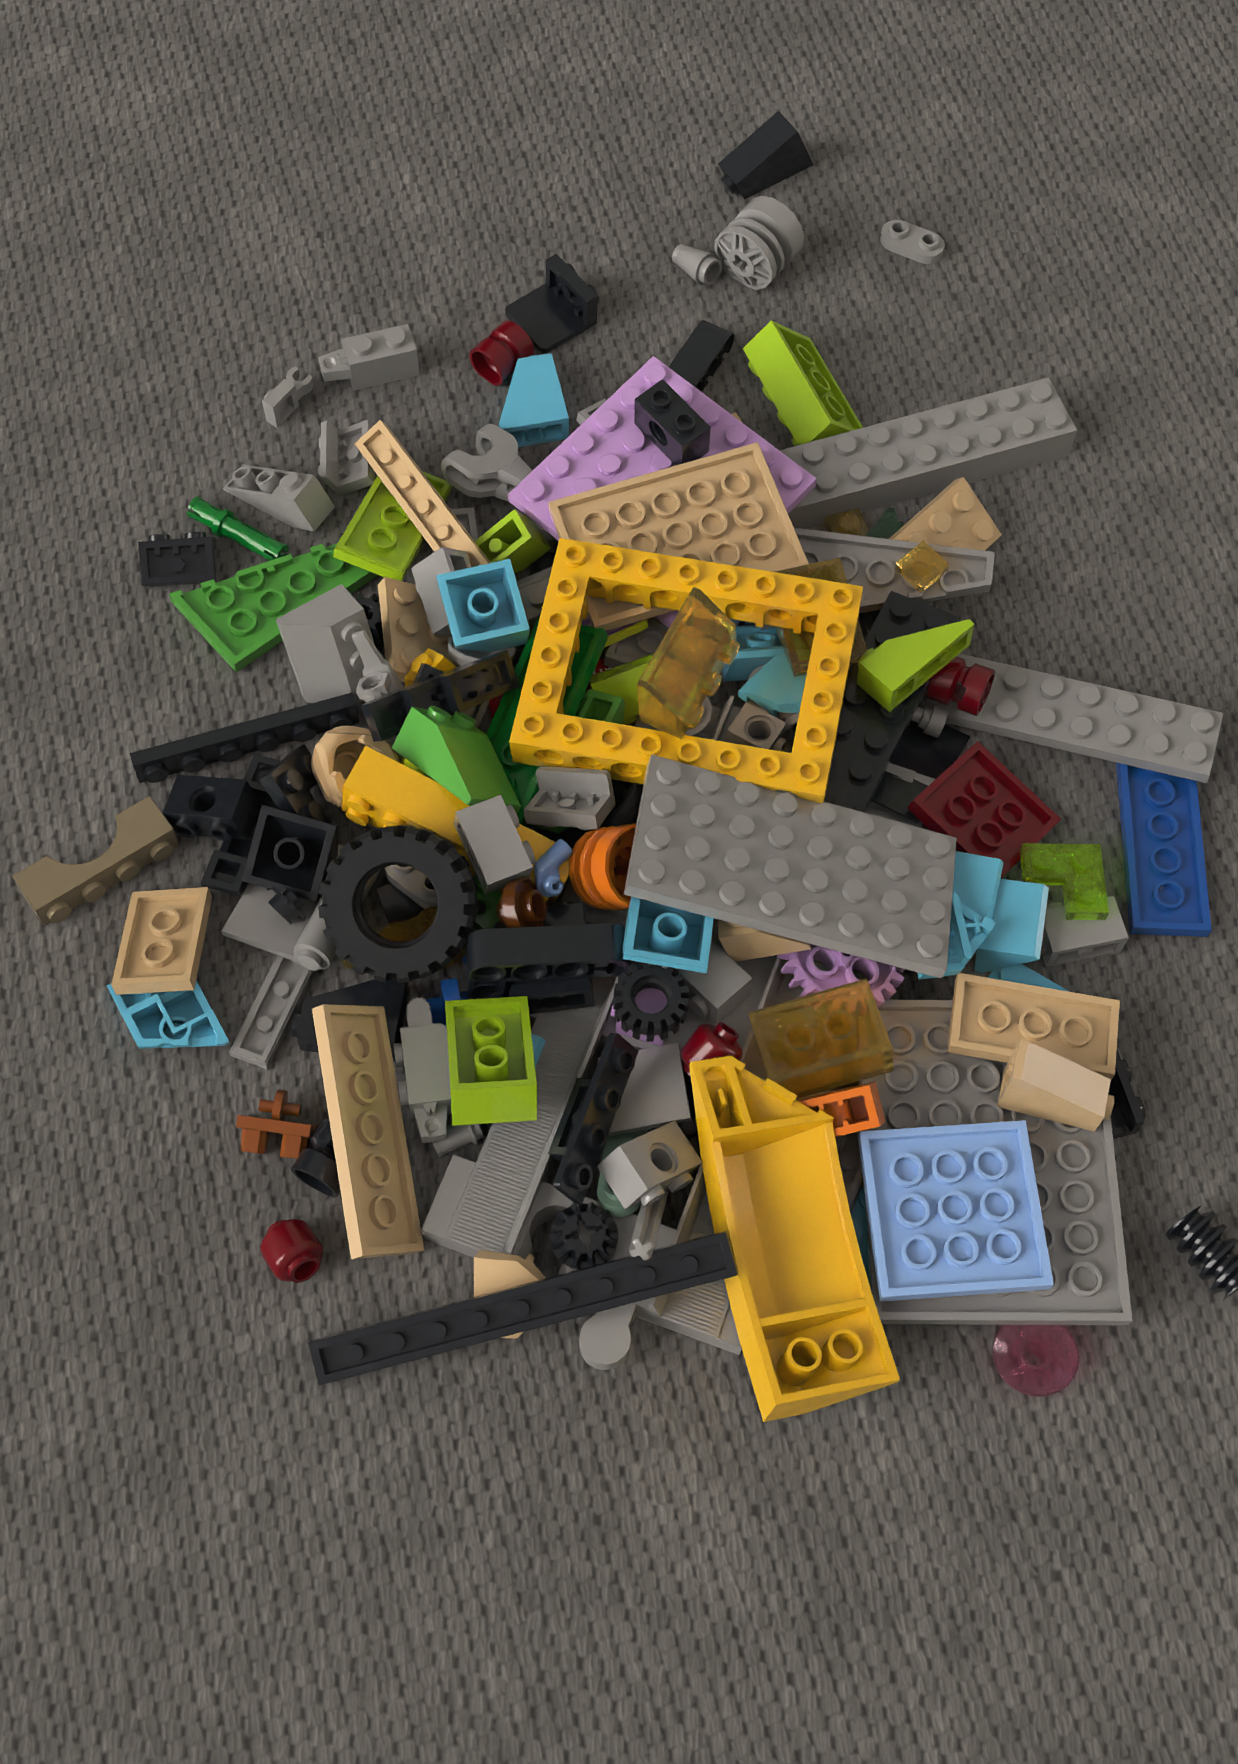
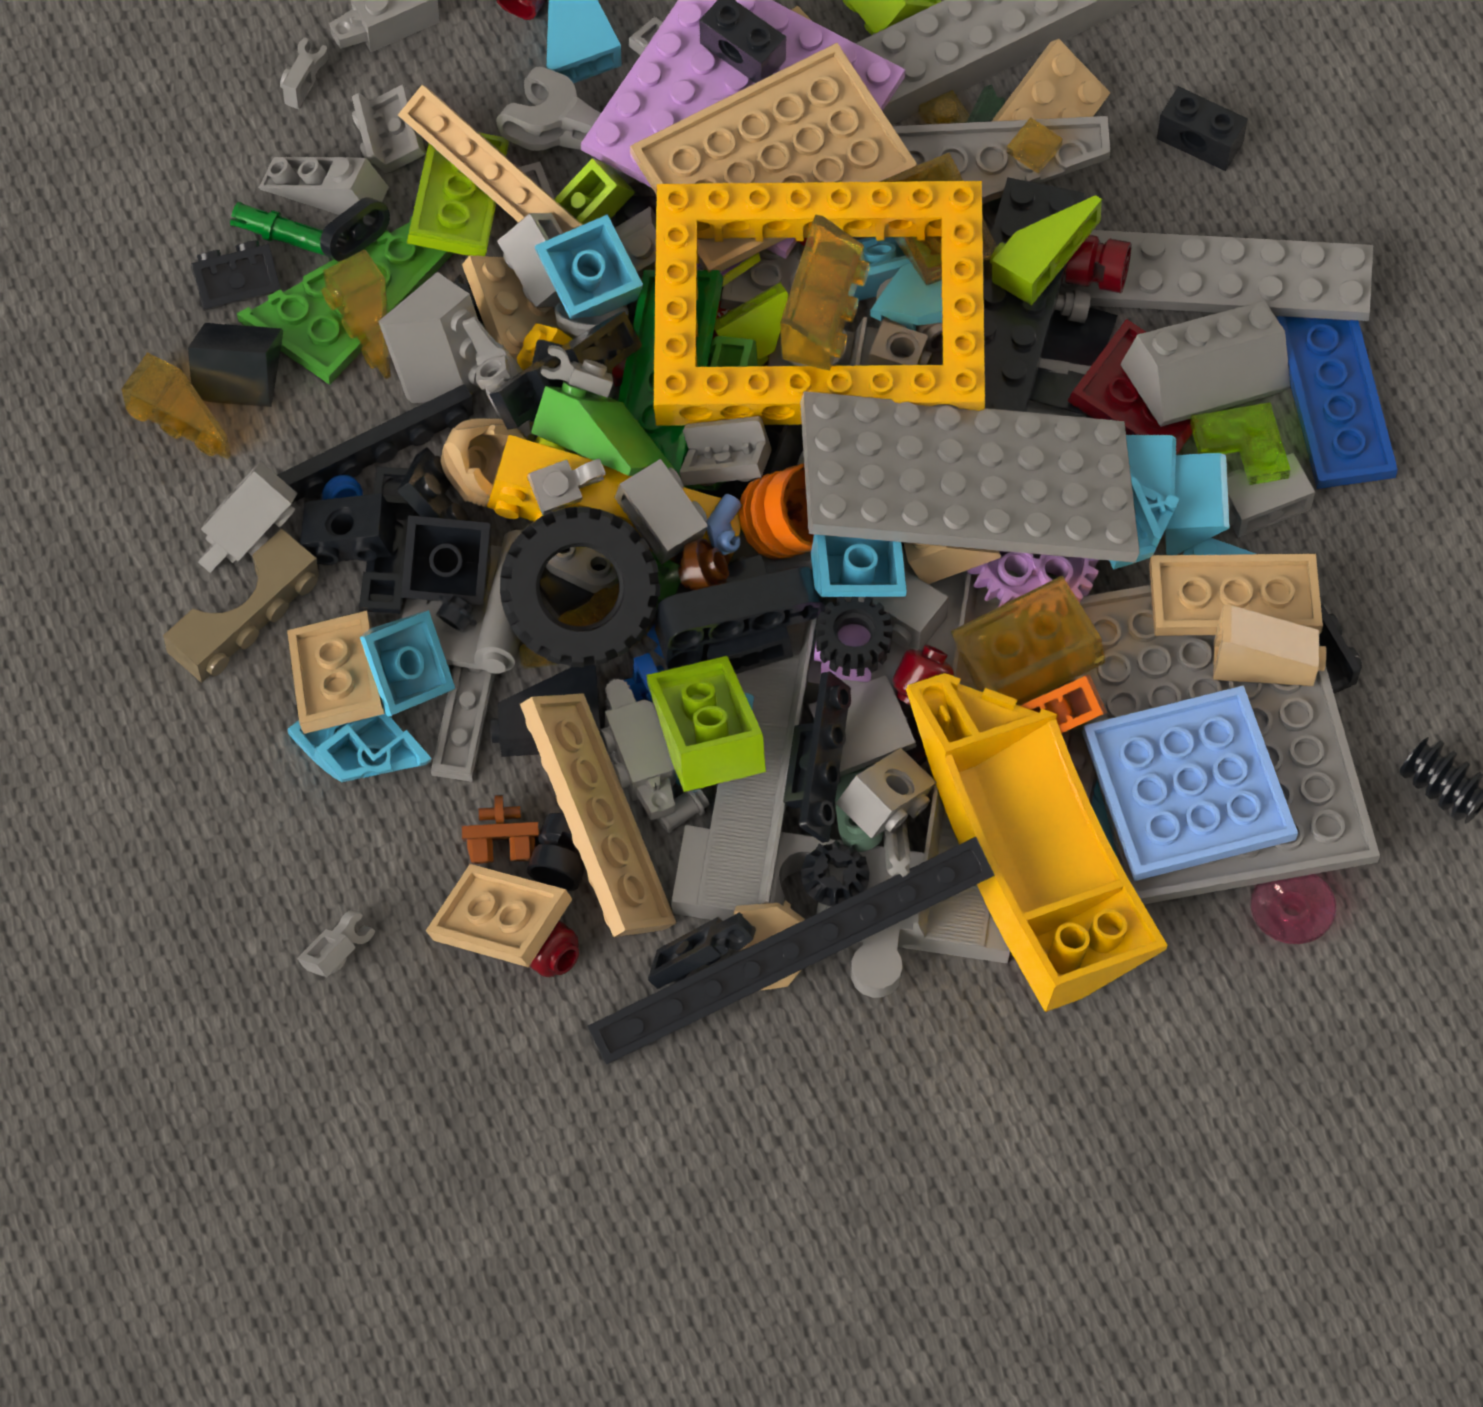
camera: 10 degrees left, 0 degrees up
(83, 656) = (168, 398): none -> clear yellow slope
(86, 1211) = (331, 948): none -> light grey plate
(118, 777) = (246, 515): none -> light grey hinge
(153, 638) = (235, 363): none -> black slope
(218, 767) = (341, 487): none -> blue plate
(226, 944) = (407, 662): none -> medium azure slope
(250, 1212) = (499, 915): none -> tan plate
(277, 591) = (361, 297): none -> clear yellow slope
(288, 538) = (354, 232): none -> black plate
(400, 803) = (559, 485): none -> light grey plate
(434, 1286) = (699, 948): none -> black hinge
(454, 704) = (587, 376): none -> light grey plate
(1048, 796) = (1209, 363): none -> light grey slope
(1080, 580) = (1202, 128): none -> black brick

